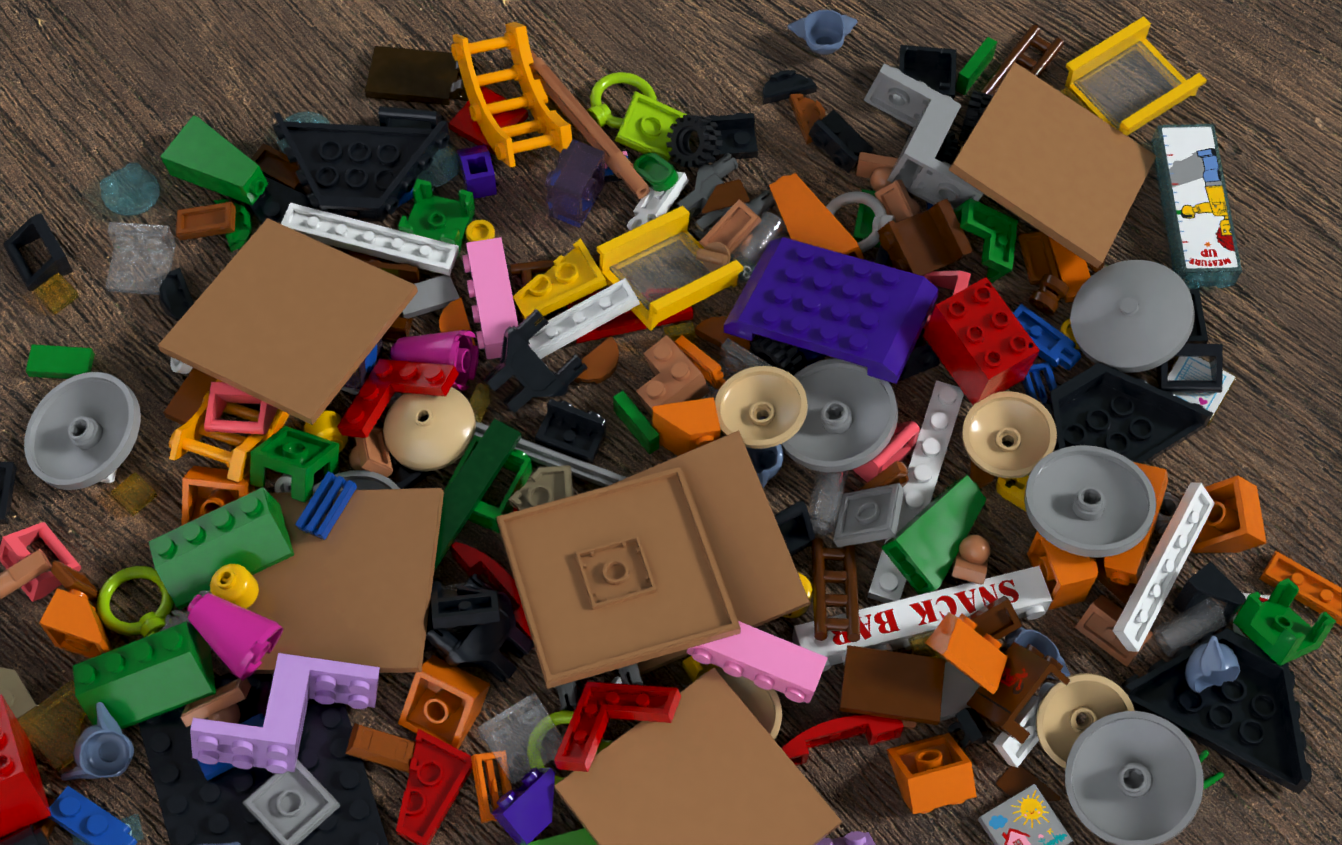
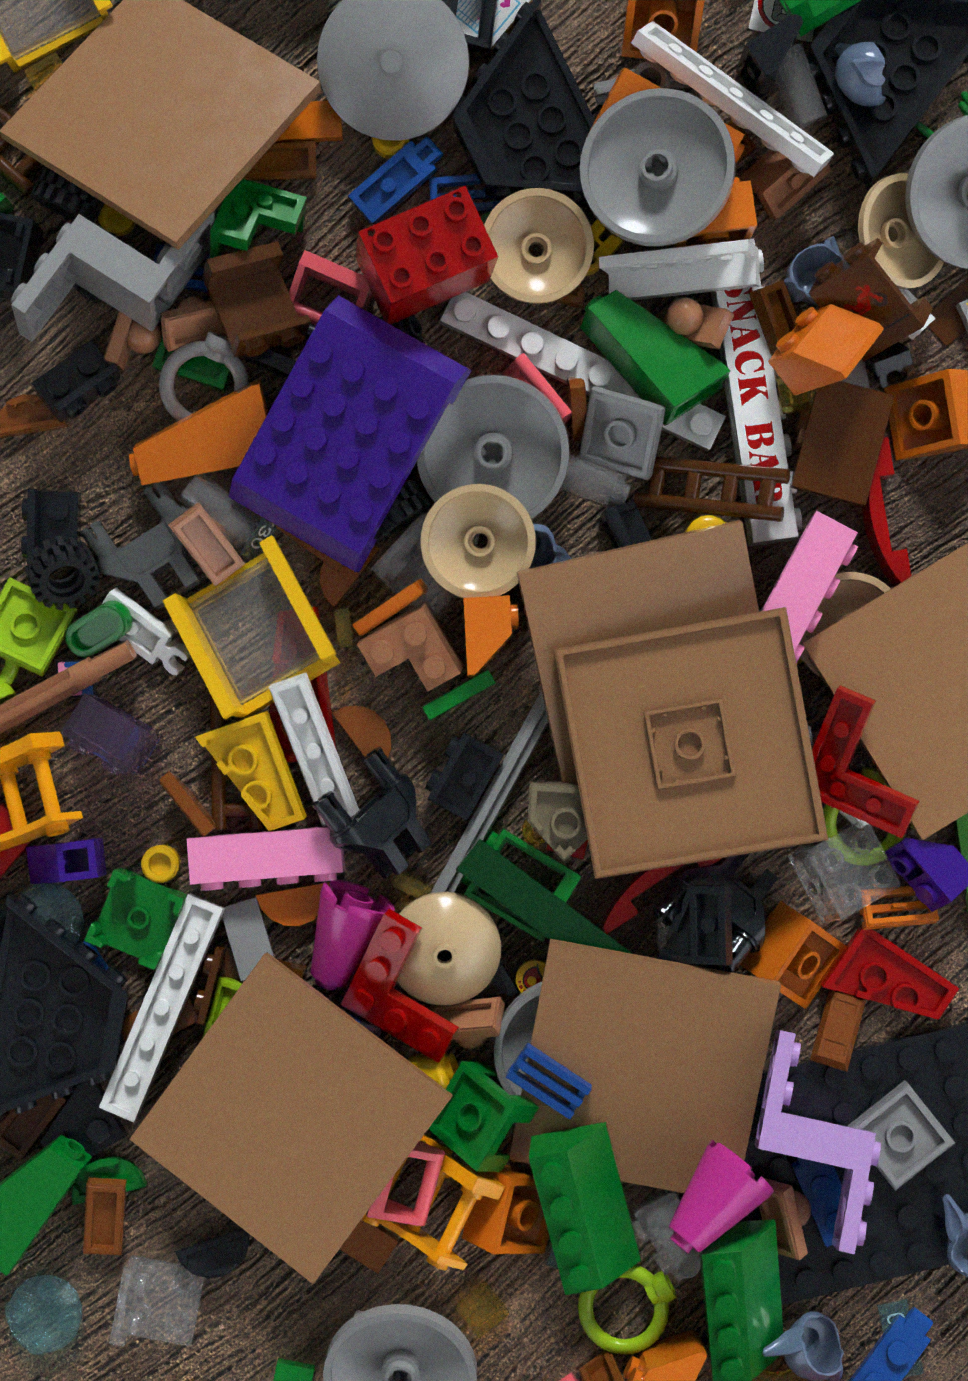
camera: 80 degrees left, 25 degrees up
(235, 585) = (644, 1194): yellow head -> none
(529, 243) = (188, 804): none -> dark orange tile
(714, 255) = (244, 569): medium nougat plate -> none
(726, 195) = (152, 542): reddish brown sticker -> none
(1013, 546) = (683, 270): none -> white fence
(1049, 294) = (345, 165): reddish brown wheel -> none

